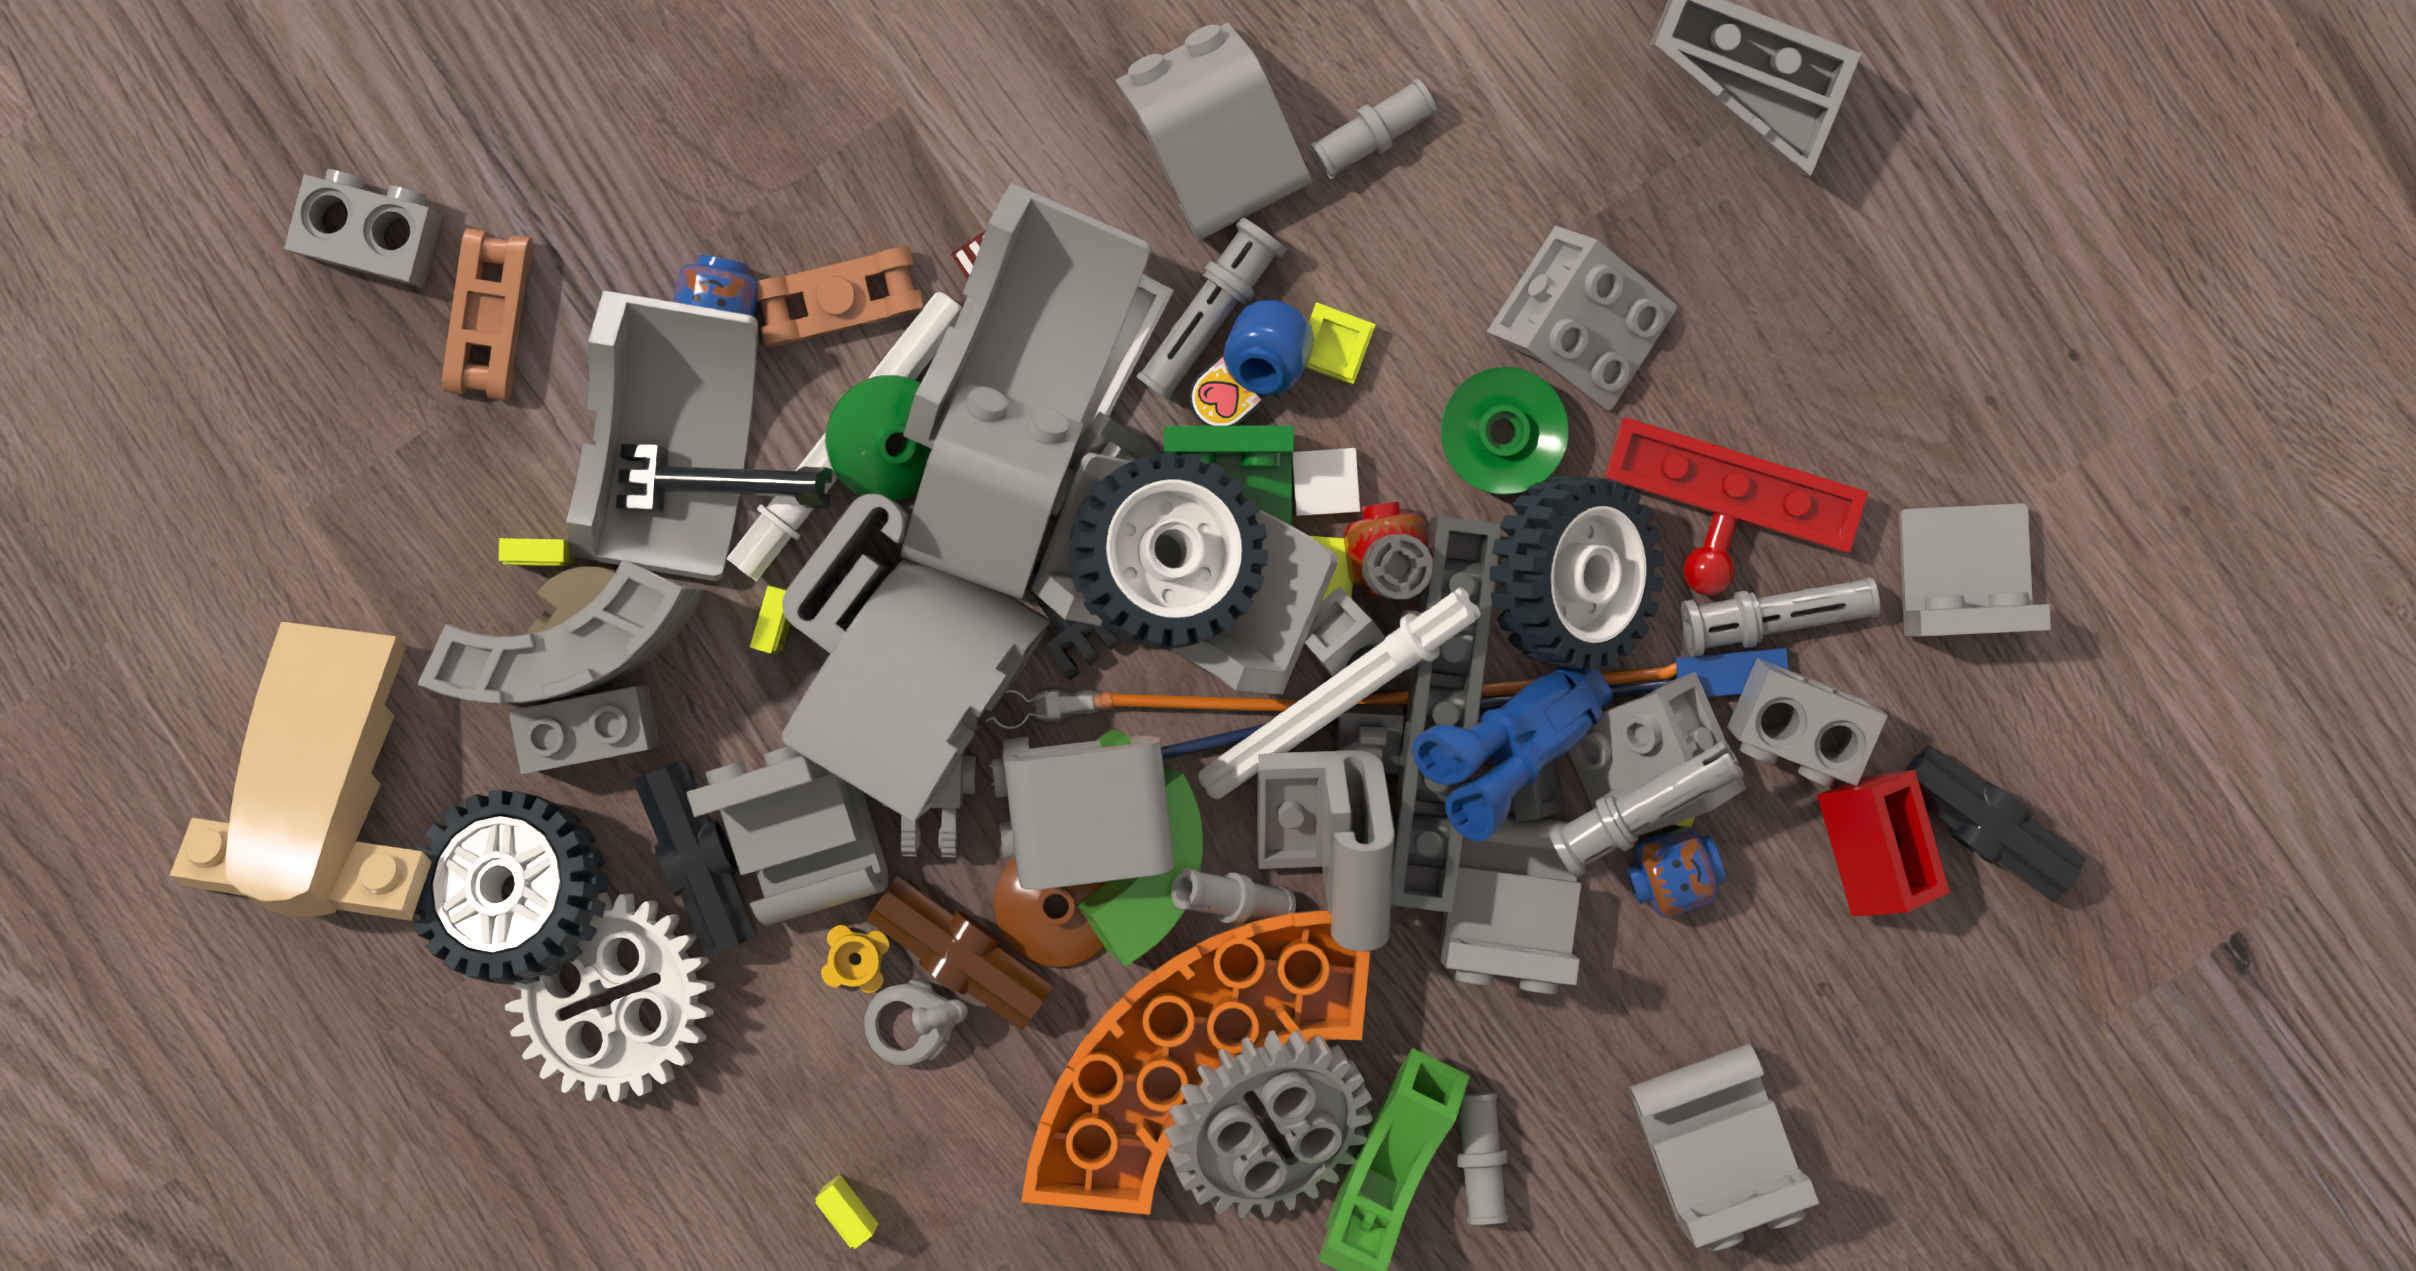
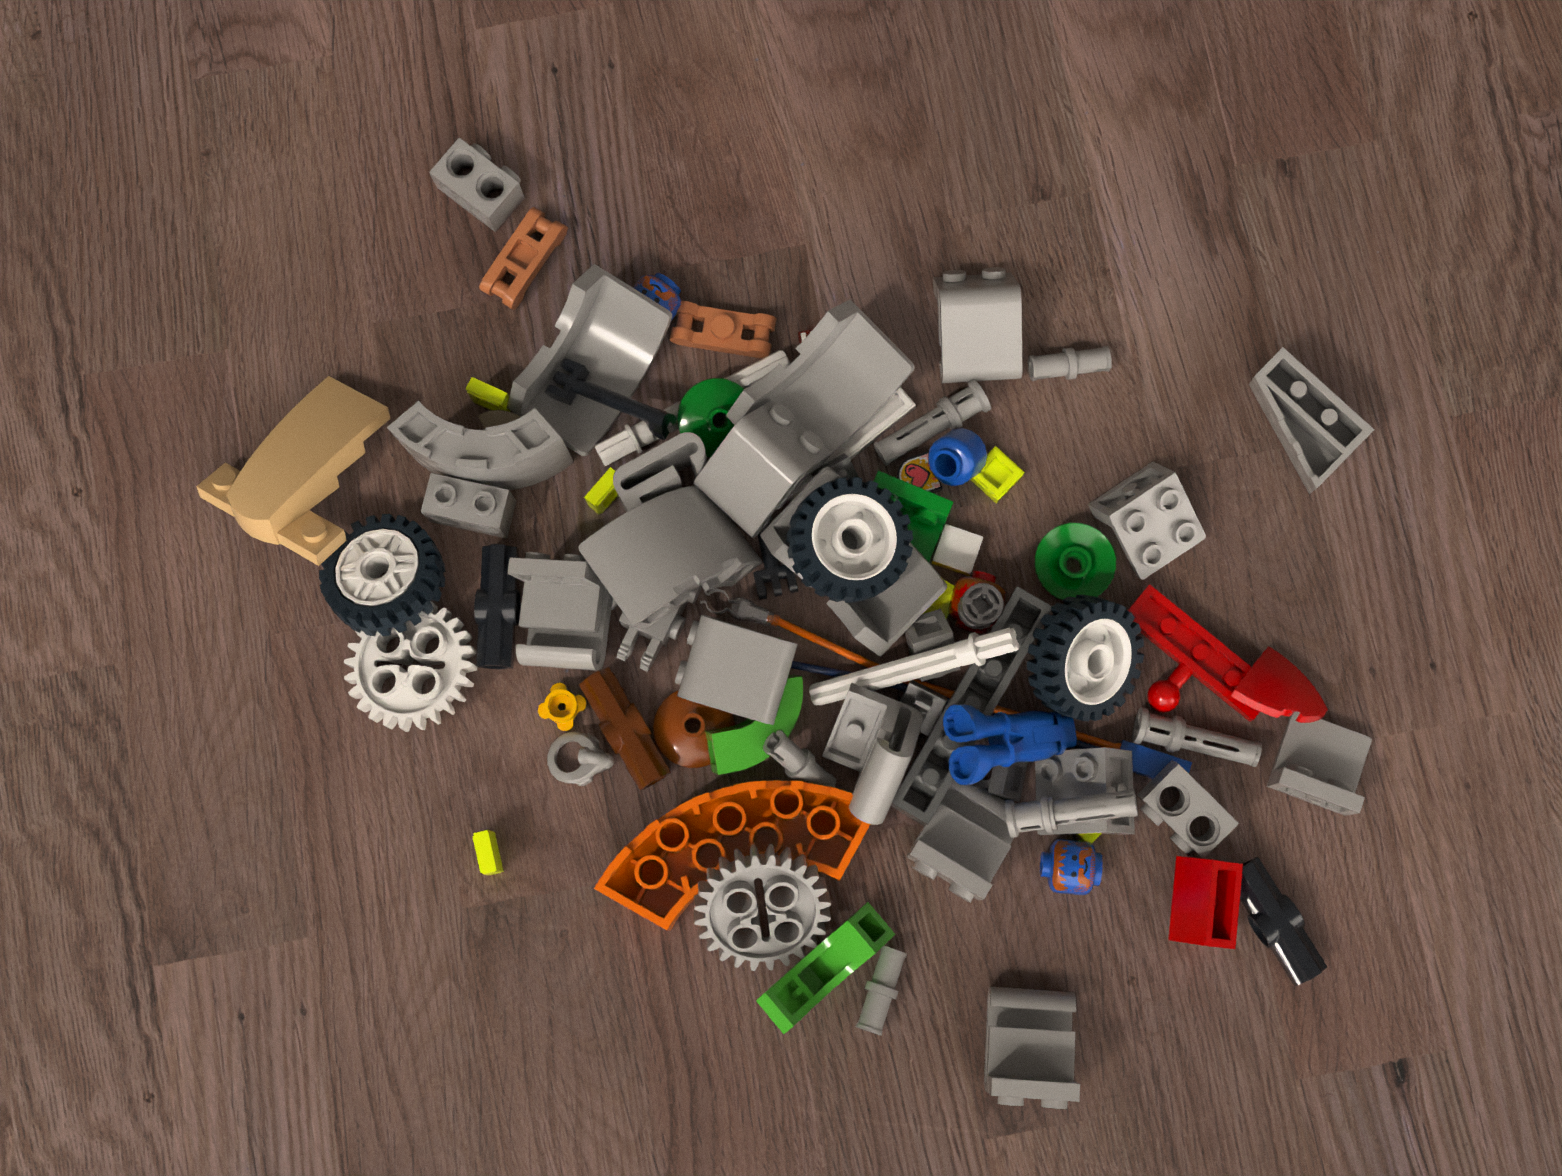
camera: 25 degrees right, 10 degrees down
(1871, 493) = (1280, 689): none -> red brick

